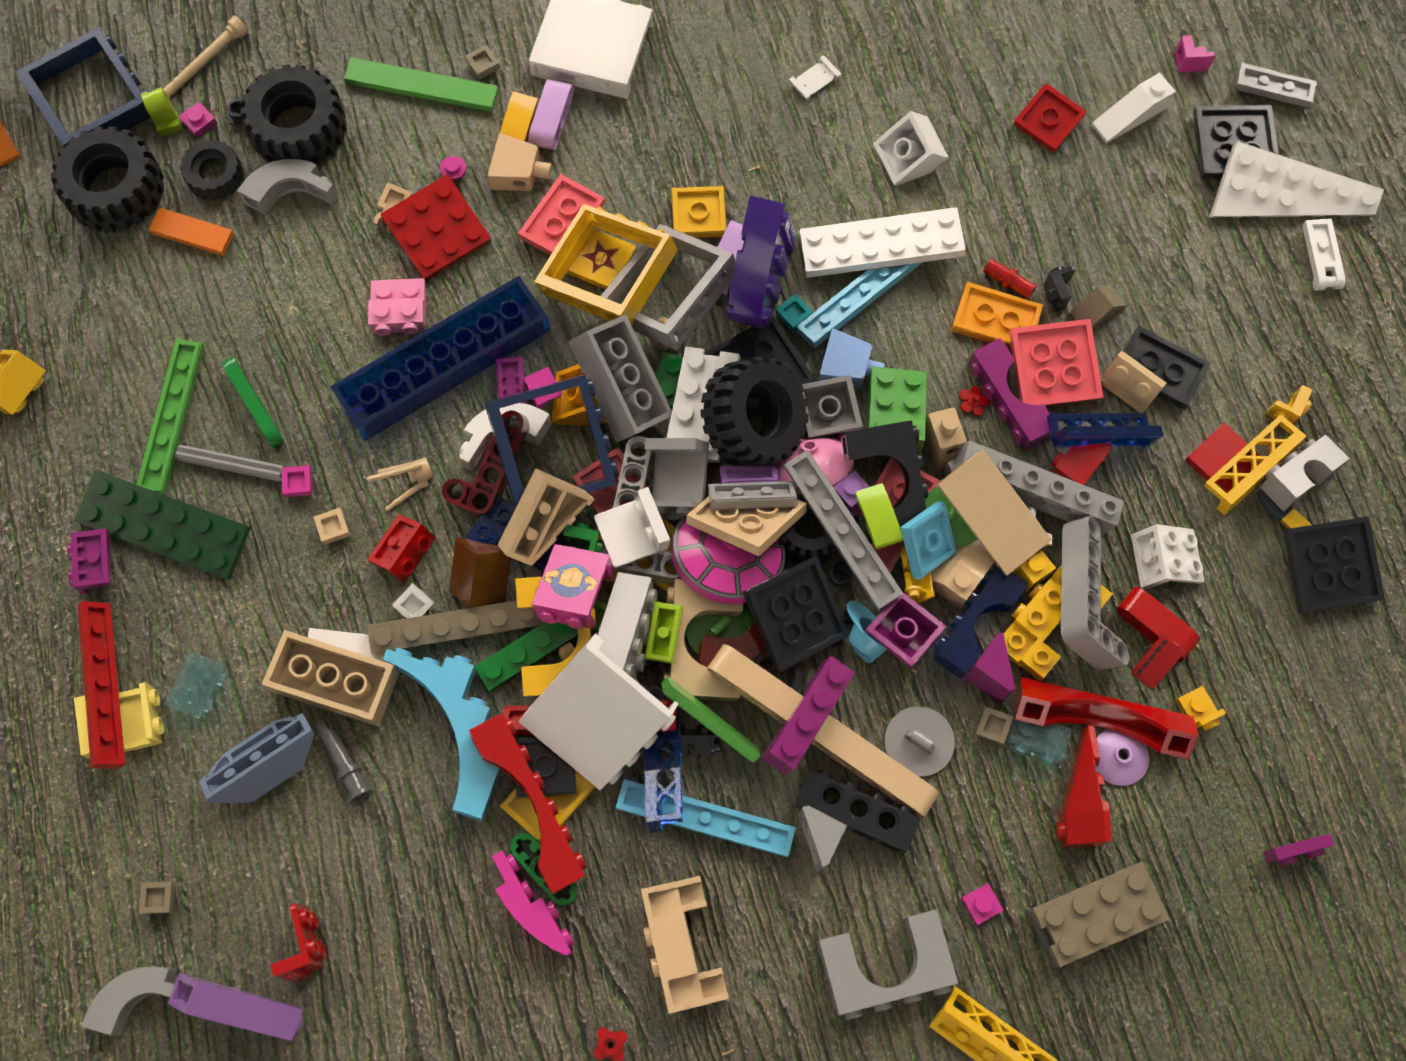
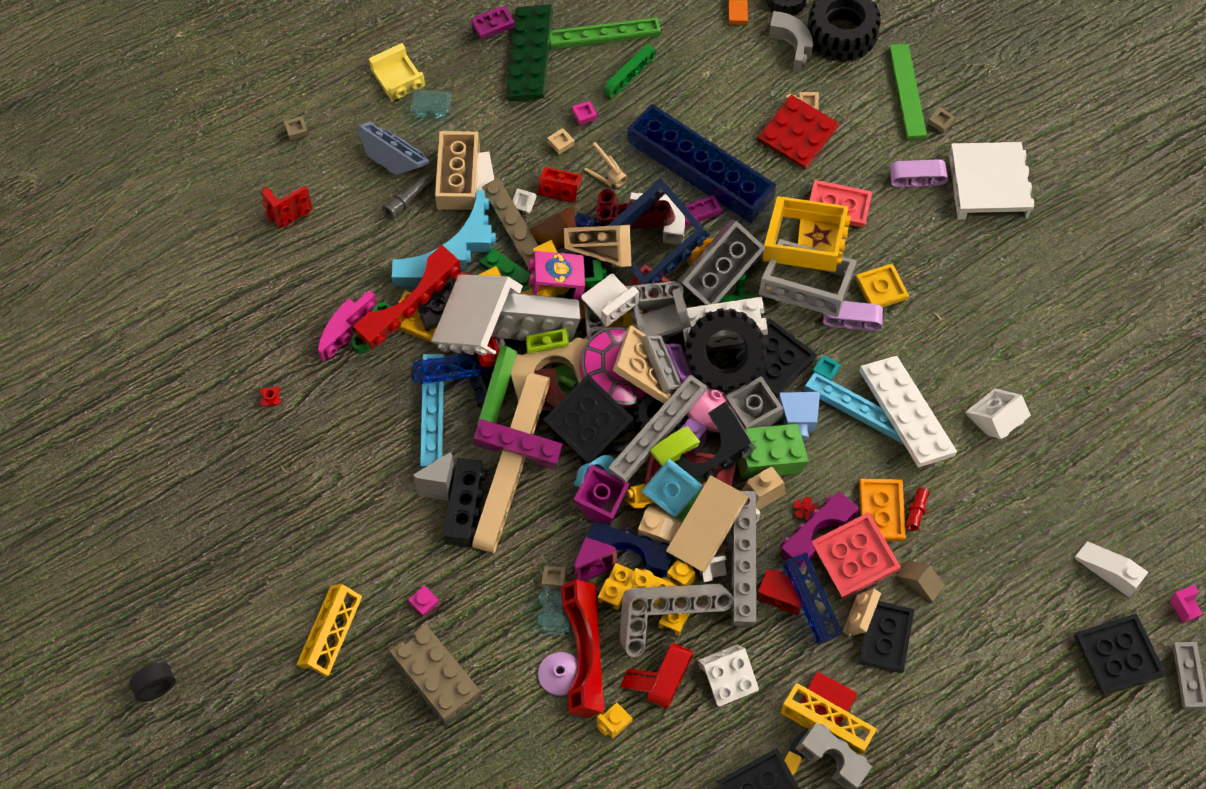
camera: 75 degrees right, 10 degrees down
(100, 685) = (415, 54): red plate -> none
(117, 999) = (234, 129): light grey arch -> none
(229, 463) = (584, 73): light grey axle -> none
(235, 1007) = (240, 184): medium lavender slope -> none
(397, 306) = (731, 129): bright pink plate -> none
(454, 167) = (849, 129): dark pink plate -> none
(516, 165) = (867, 163): tan torso -> none
(519, 116) = (905, 152): yellow slope -> none
(539, 379) = (707, 223): dark pink panel -> none
(674, 958) = (341, 412): tan bracket -> none
(761, 262) = (835, 314): dark purple brick -> none
(815, 78) = (1032, 334): white piece -> none
(920, 740) = (528, 533): light grey shield -> none
(930, 969) = (367, 574): light grey arch -> none
(1049, 117) = (1074, 507): red plate -> none
(1056, 289) = (920, 543): black bracket -> none
(1083, 815) = (512, 649): red wedge -> none
(1276, 186) = (1089, 692): white wing -> none
(1296, 407) = (892, 745): yellow bracket -> none
(1323, 254) = (1044, 744): white plate -> none

